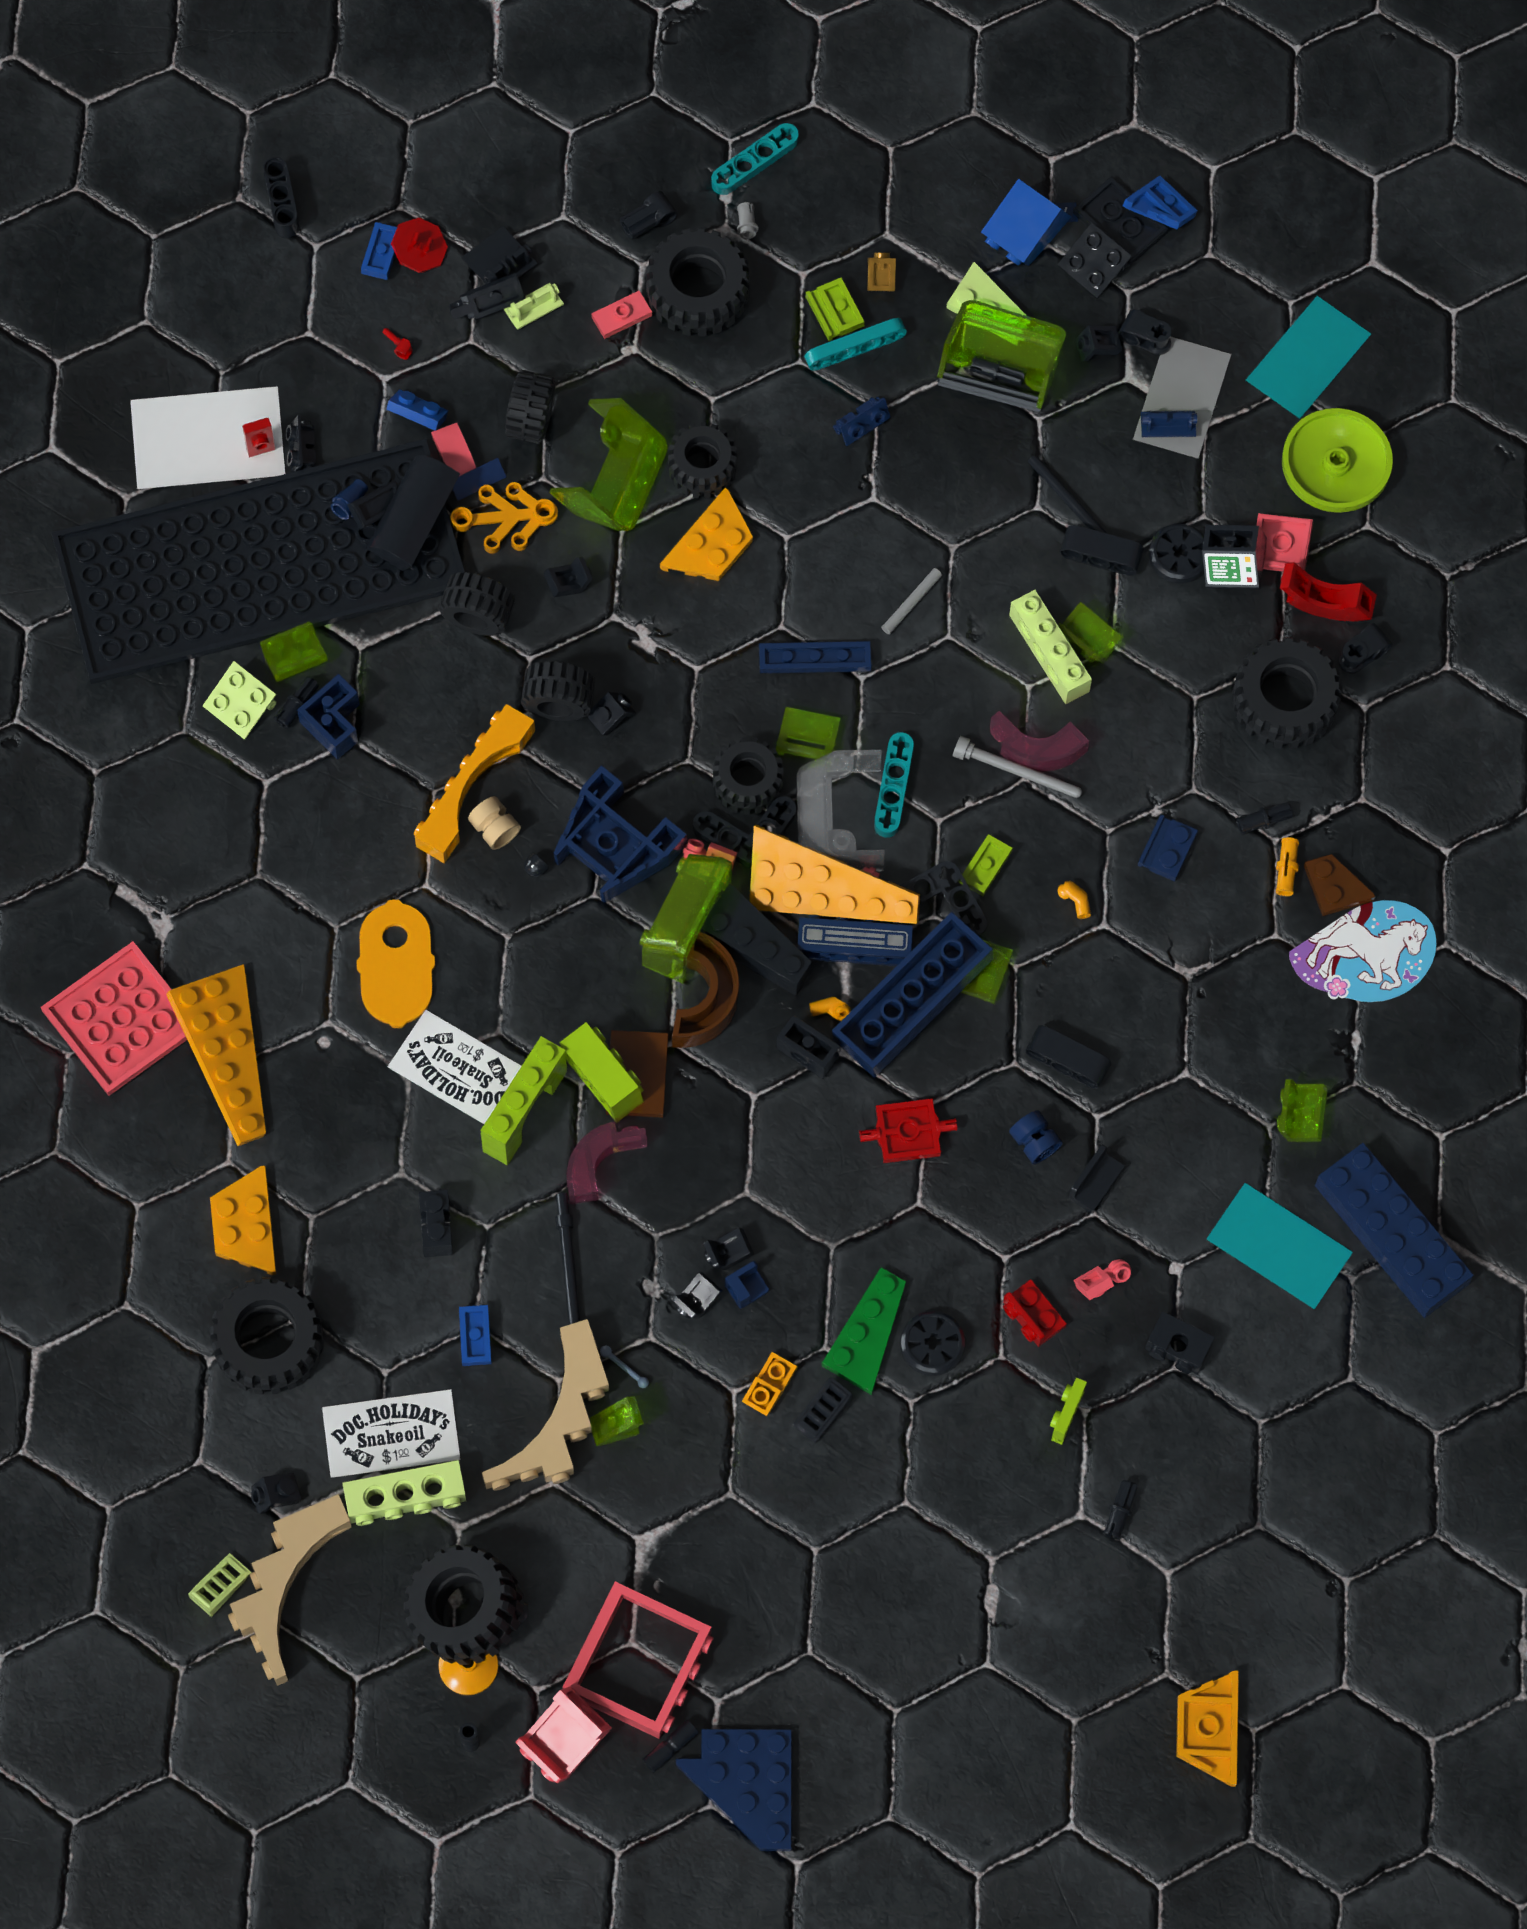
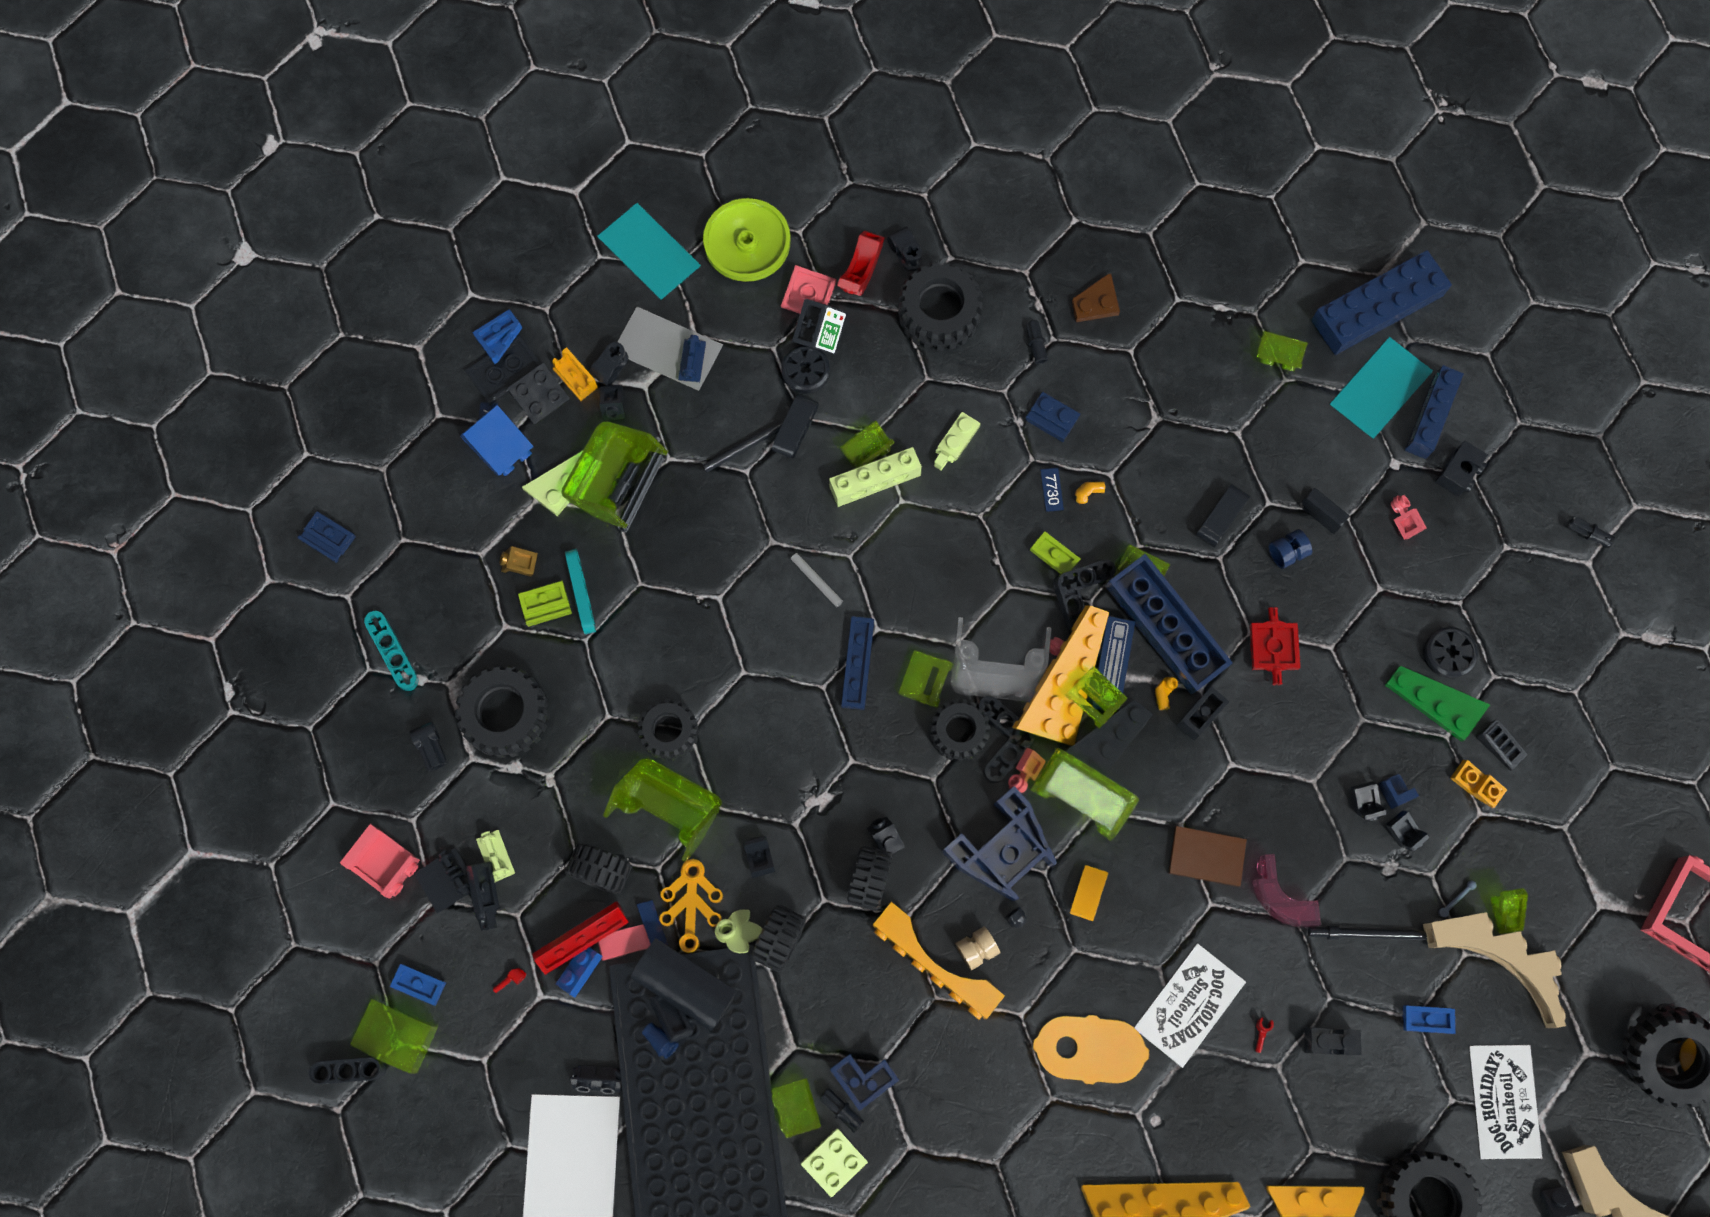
camera: 80 degrees left, 5 degrees up
(258, 437) = (587, 1117): red plate -> none
(322, 238) = (394, 1036): none -> clear neon green slope
(388, 1486) = (1557, 1109): yellowish green brick -> none
(419, 245) = (418, 949): red piece -> none
(435, 1150) = (1262, 1033): none -> red hand
(453, 402) = (580, 938): none -> red fence
(481, 561) = (741, 931): none -> yellowish green plate
(512, 189) = (380, 861): none -> coral panel
(540, 1071) = (1262, 969): lime arch -> none
(575, 939) = (1089, 893): none -> light orange slope
(602, 1071) = (1217, 882): lime brick -> none
(621, 314) = (517, 781): coral plate -> none
(711, 542) = (740, 733): light orange wing -> none
(716, 1011) = (1160, 780): reddish brown brick -> none
(747, 227) = (449, 664): light grey pin -> none
(813, 920) = (1100, 691): none -> clear neon green plate
(869, 417) = (645, 586): dark blue hinge -> none
(879, 67) = (326, 537): none -> dark blue plate
(892, 784) = (977, 612): teal beam -> none
(966, 749) = (953, 555): light grey piece -> none
(1034, 1313) = (1429, 572): red bracket -> none
(1039, 753) = (964, 484): clear pink arch -> none
(1062, 1420) = (1516, 556): lime plate -> none
(1072, 858) = (1052, 489): none -> dark blue sticker
(1116, 737) = (956, 440): none -> yellowish green hinge
(1126, 297) = (574, 375): none -> light orange hinge
(1251, 1304) = (1434, 412): none -> dark blue brick
(1288, 850) = (1079, 331): light orange pin -> none
(1368, 952) = (1151, 287): sticker -> none

